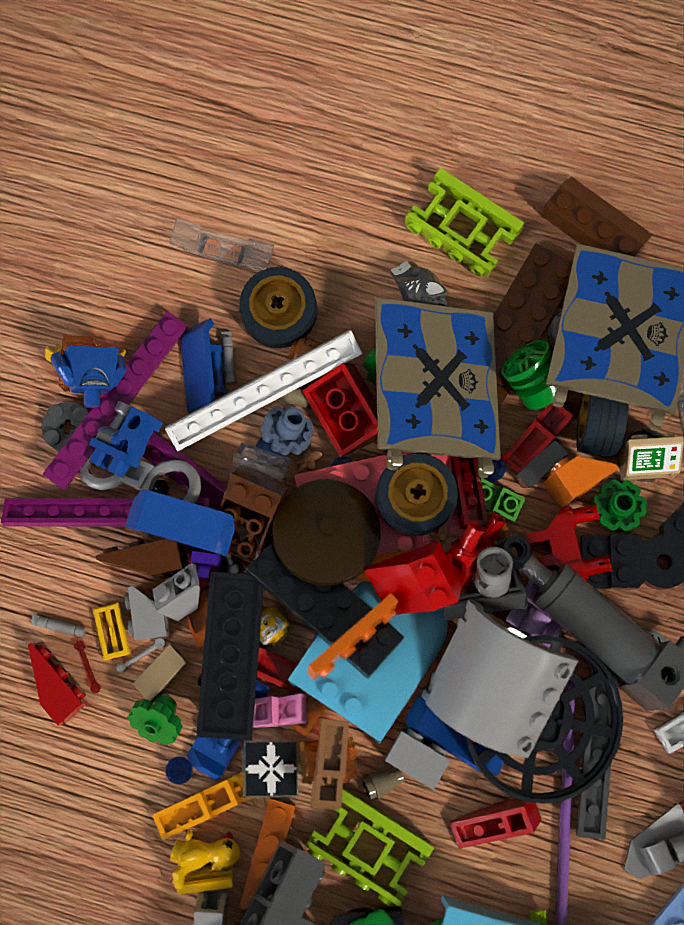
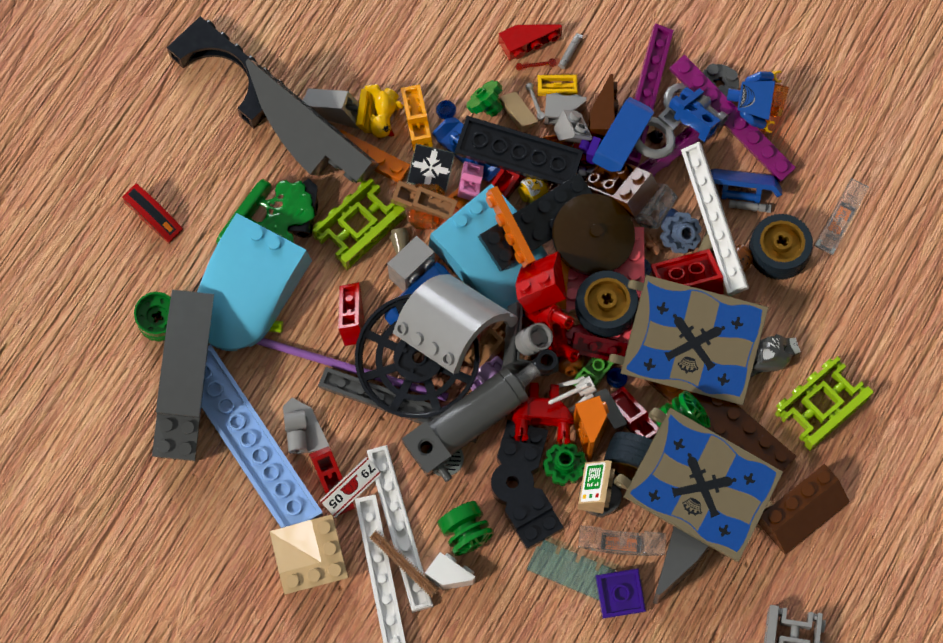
camera: 100 degrees right, 10 degrees down
(524, 500) = (585, 387): none -> white plant

